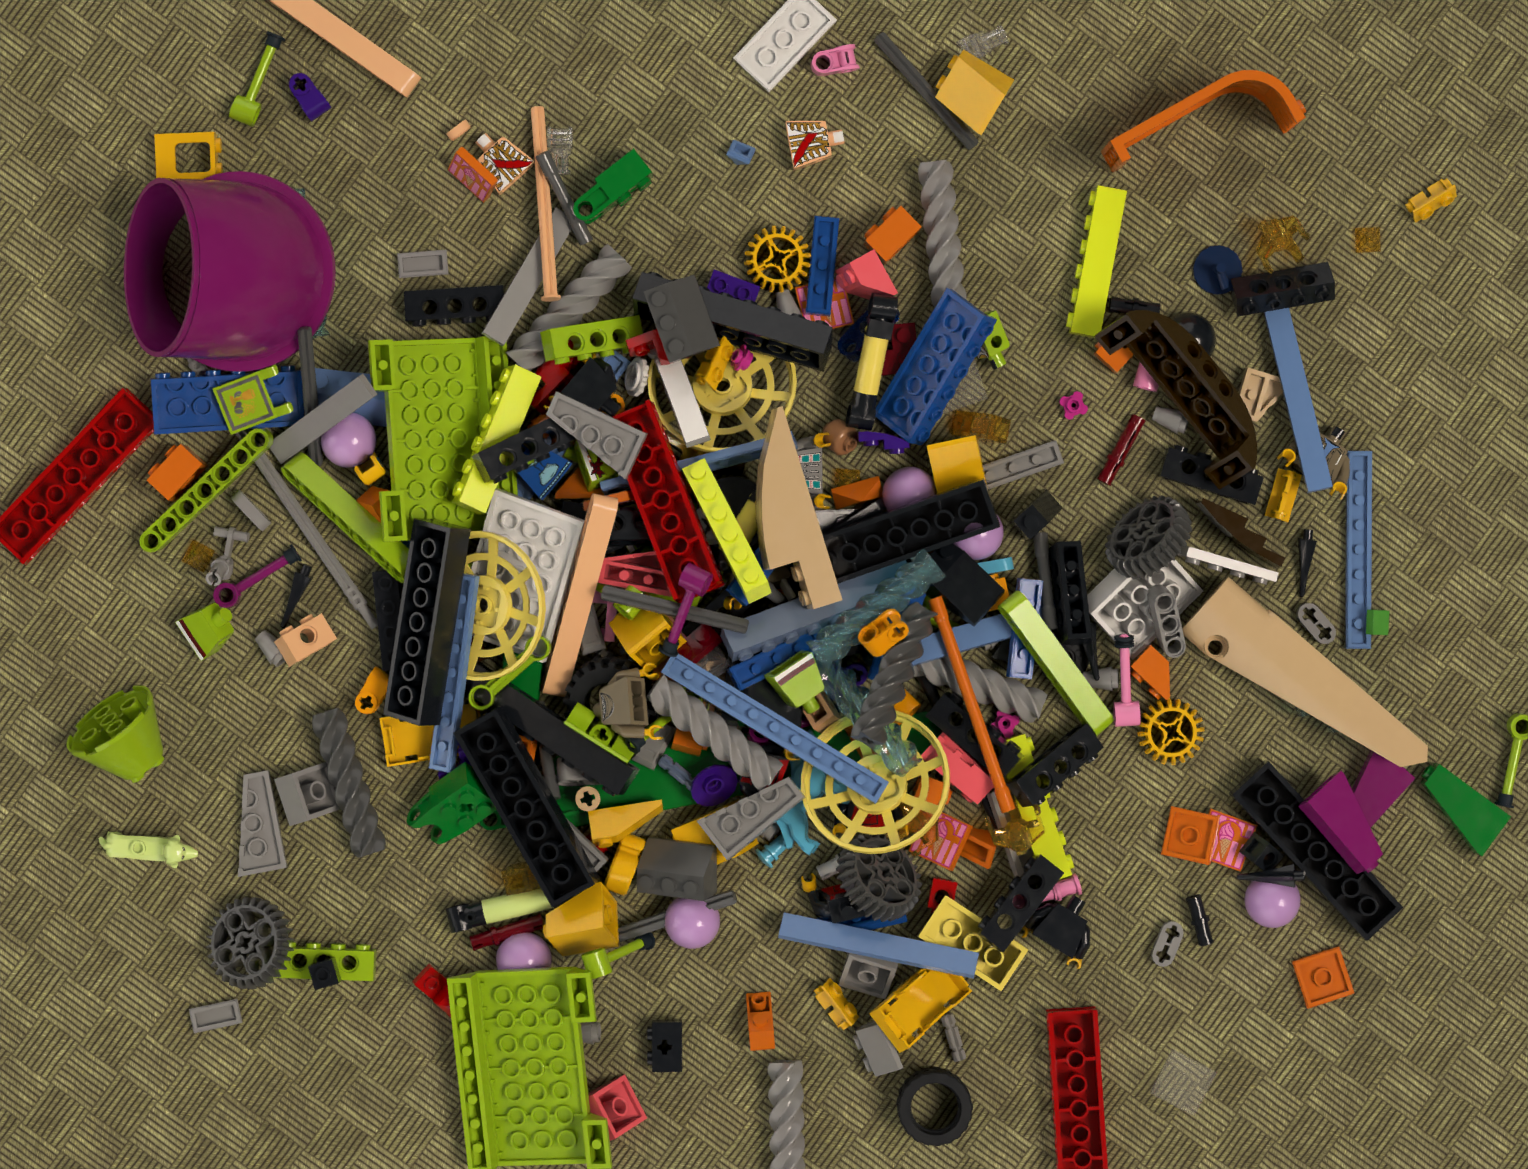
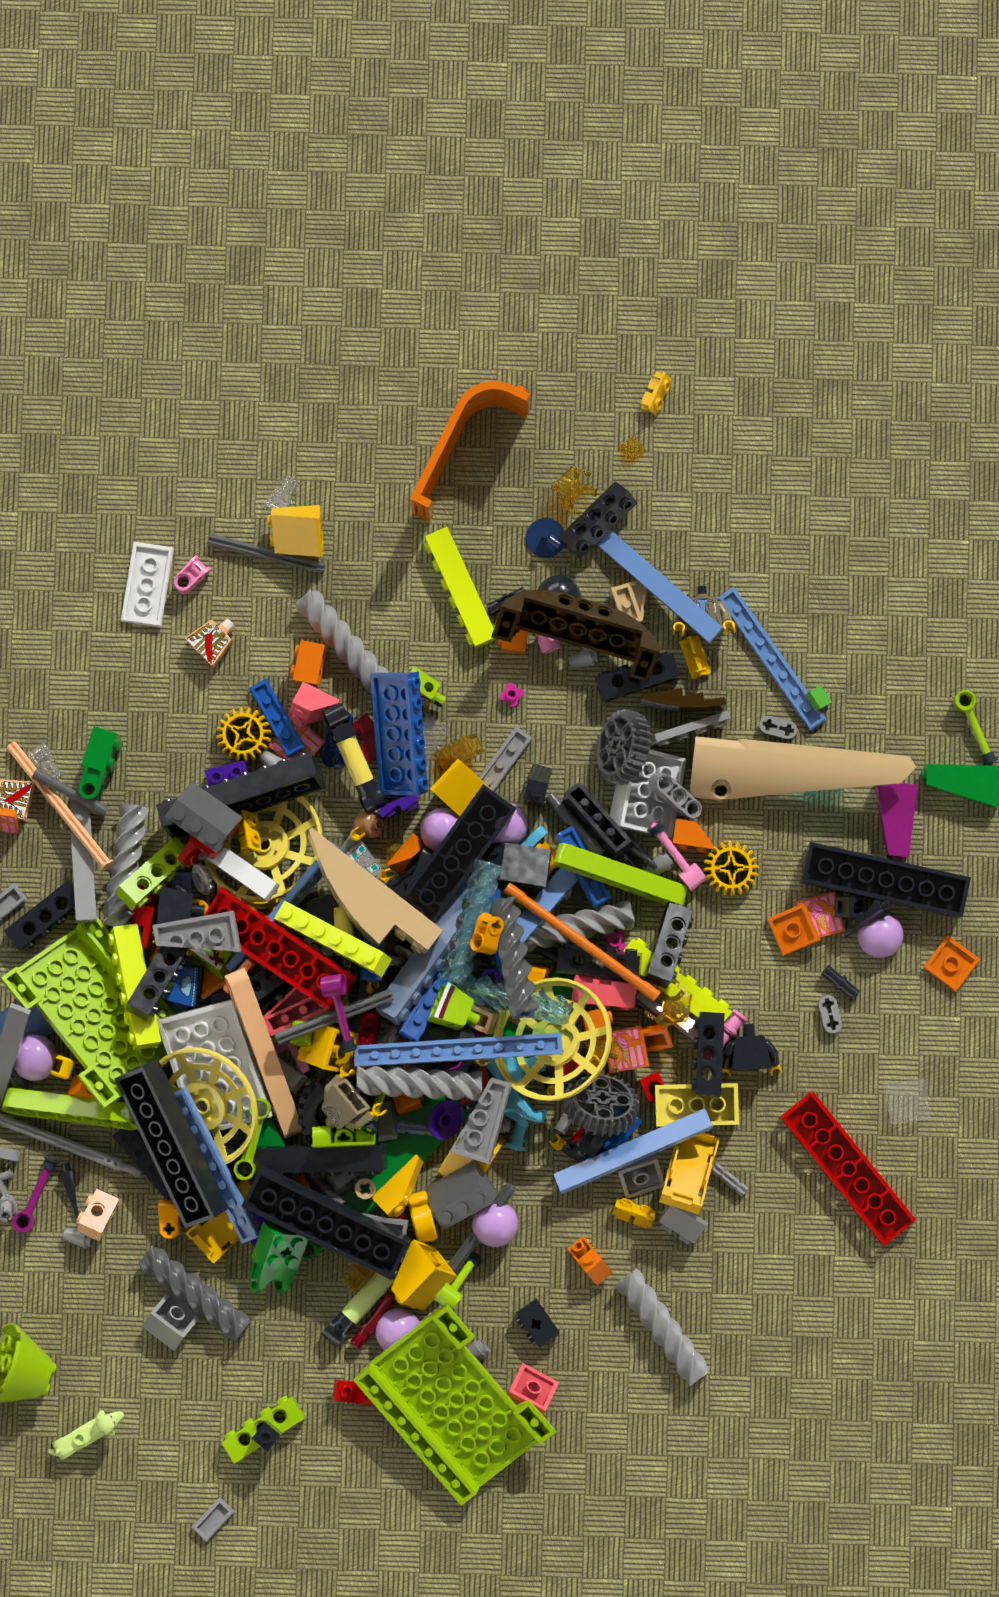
camera: 30 degrees left, 5 degrees down
(207, 629) = (25, 1254): lime torso -> none
(251, 943) = (201, 1451): dark grey gear -> none
(261, 837) = (155, 1367): light grey wing -> none
(740, 153) = (169, 681): medium blue slope -> none
(741, 358) = (264, 817): dark pink plate -> none
(934, 1136) = (773, 1239): black tyre -> none
(1116, 458) = (565, 709): dark red pin -> none
(1306, 551) = (736, 683): black piece -> none
(1342, 823) = (889, 848): magenta slope -> none

